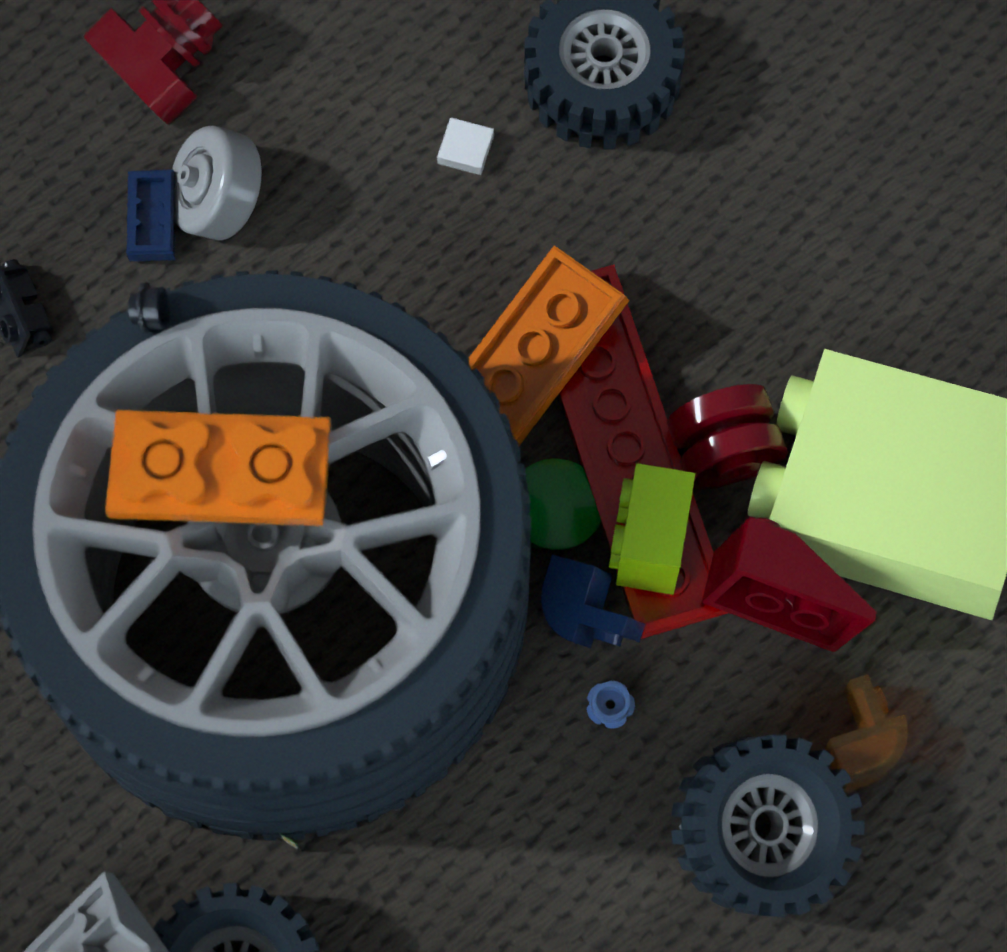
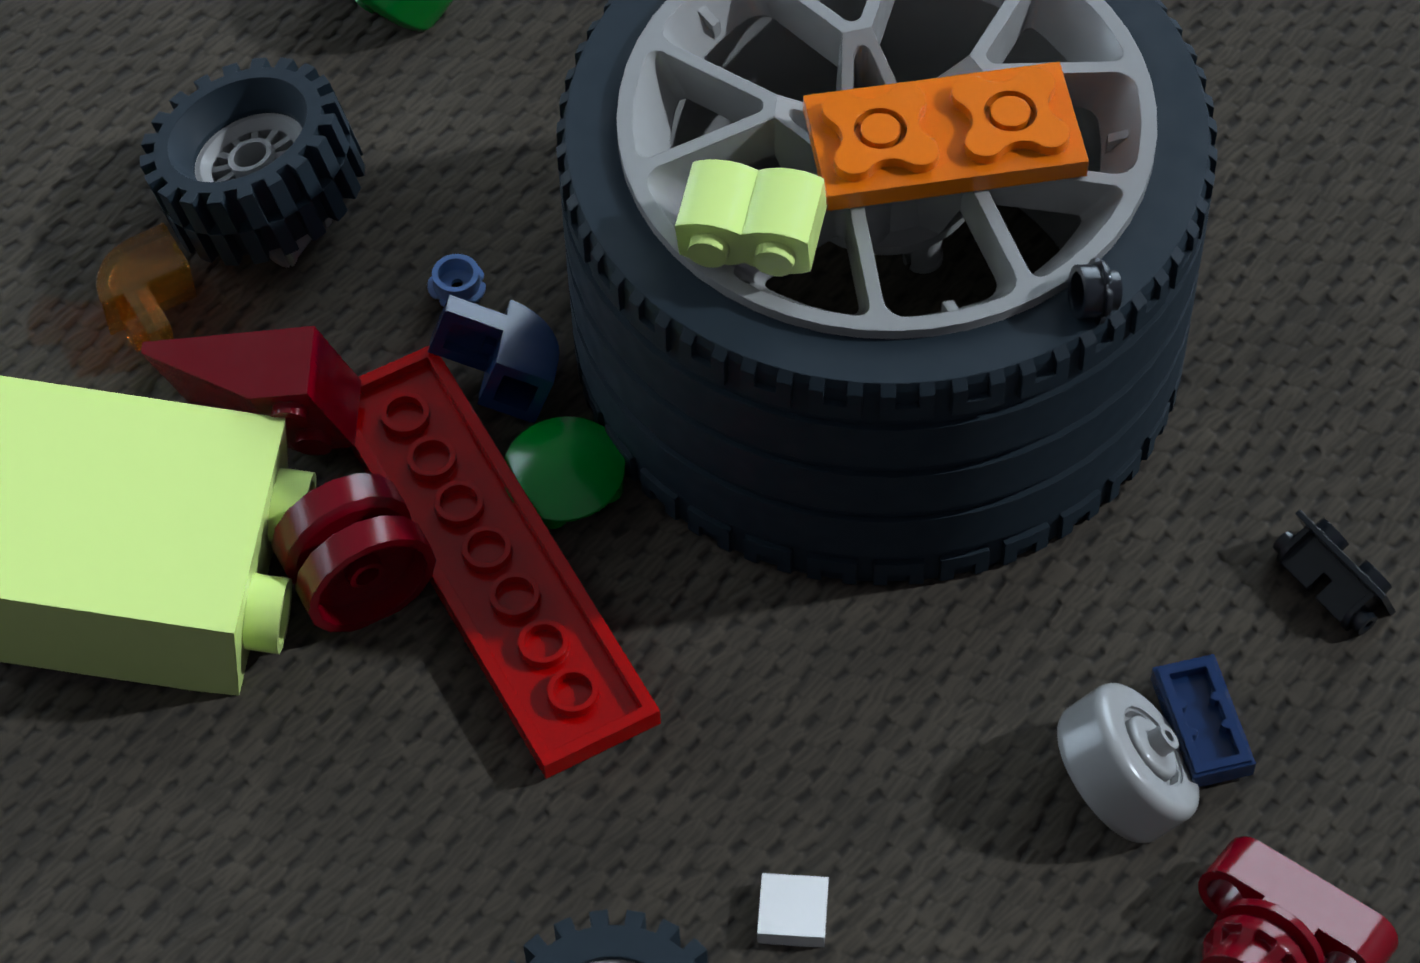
camera: 170 degrees right, 15 degrees down
(393, 407) = (751, 217): none -> yellowish green brick
(545, 337) = (626, 623): orange piece -> none
(656, 520) = (431, 404): lime brick -> none

